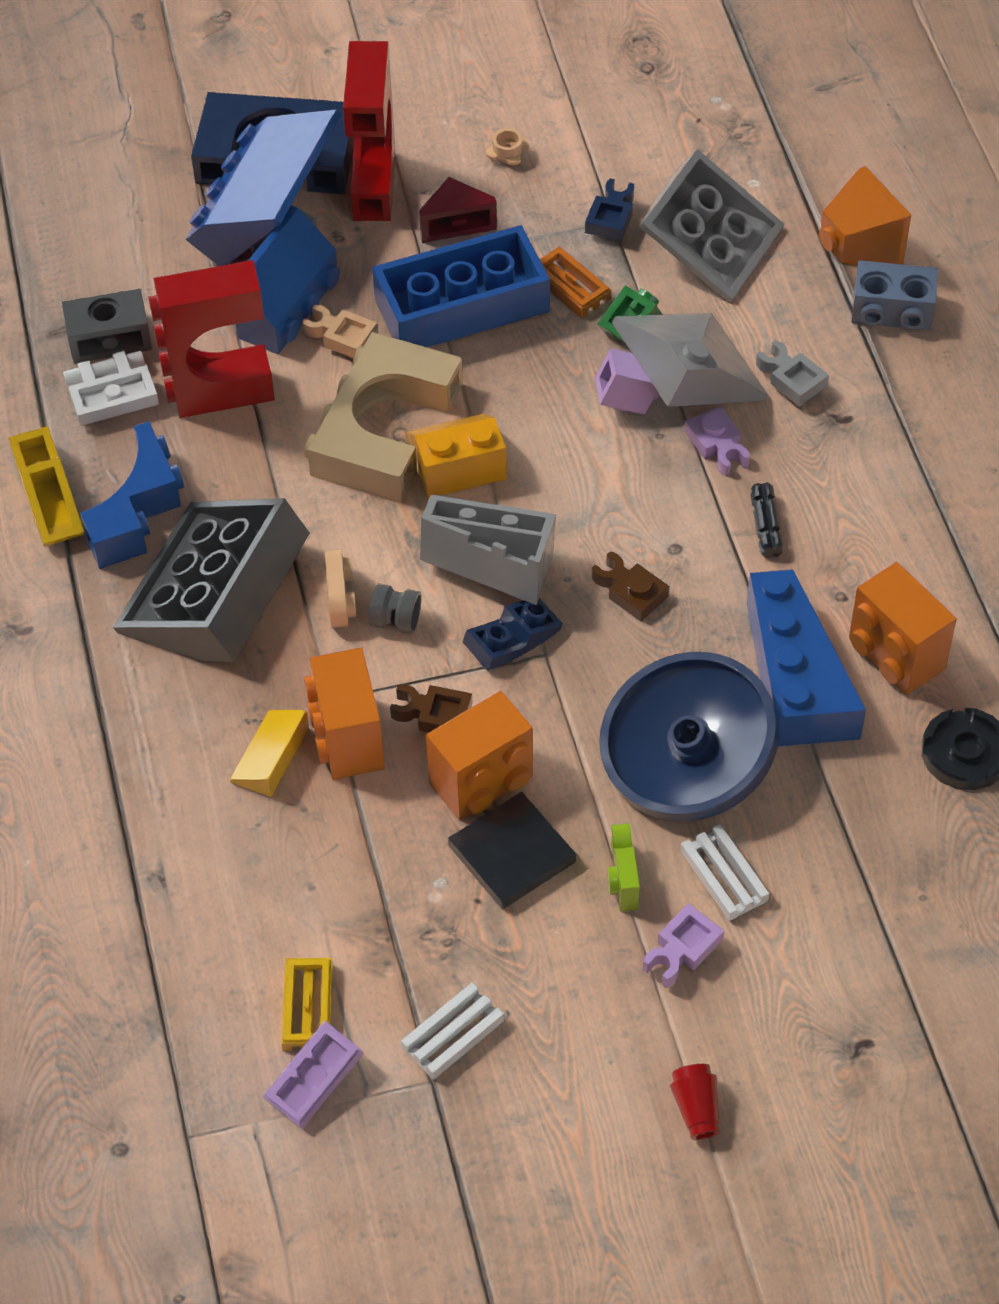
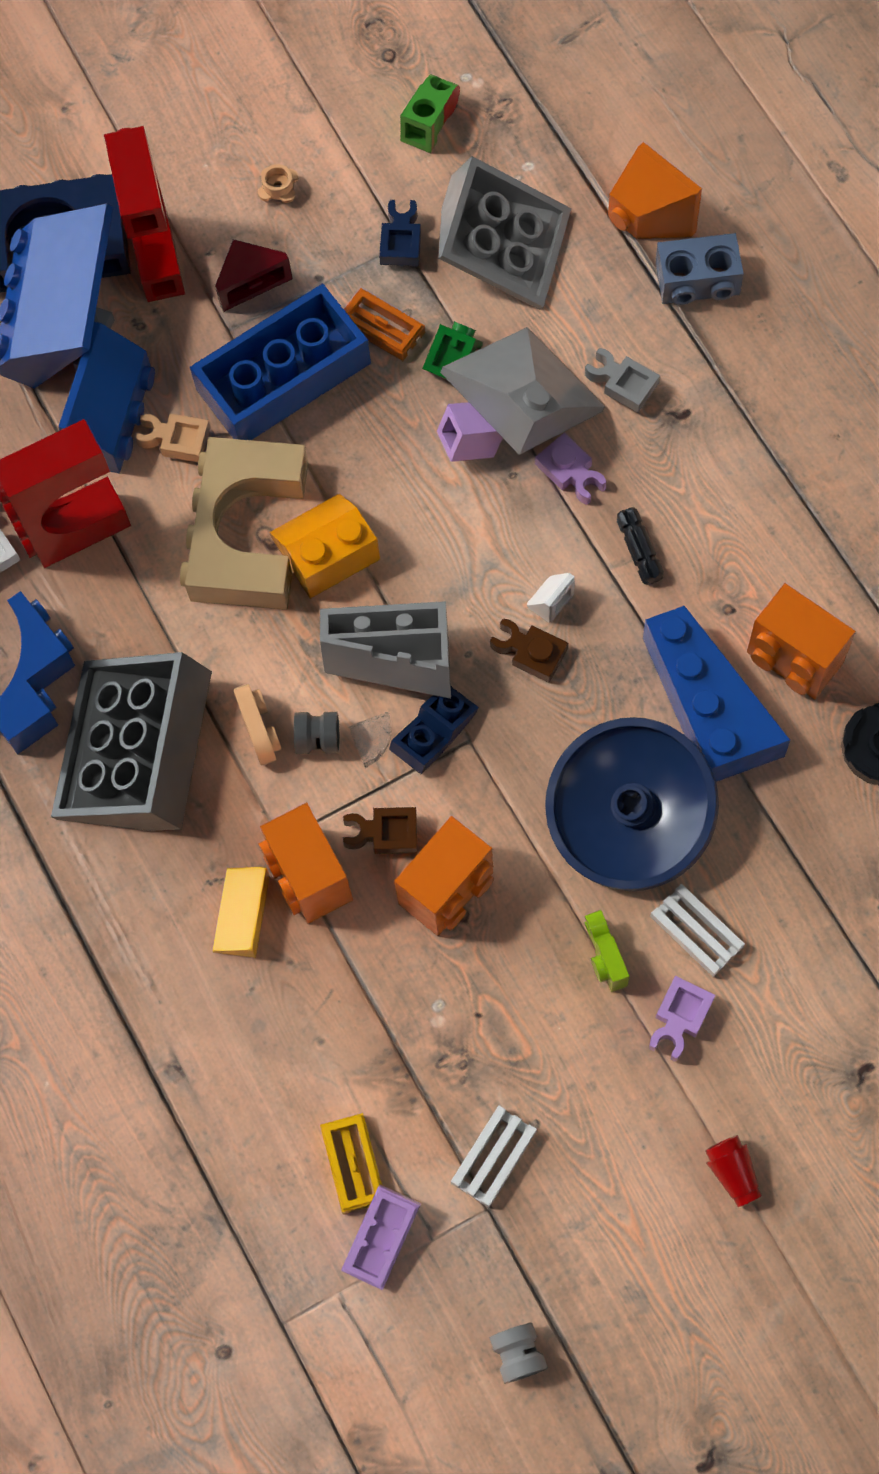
camera: 10 degrees left, 15 degrees up
(419, 1217) = (518, 1353): none -> light grey wheel
(449, 628) = (372, 737): none -> clear tile
(512, 850) = (496, 957): black tile -> none
(668, 545) = (552, 596): none -> white slope
(669, 116) = (428, 112): none -> bright green leg

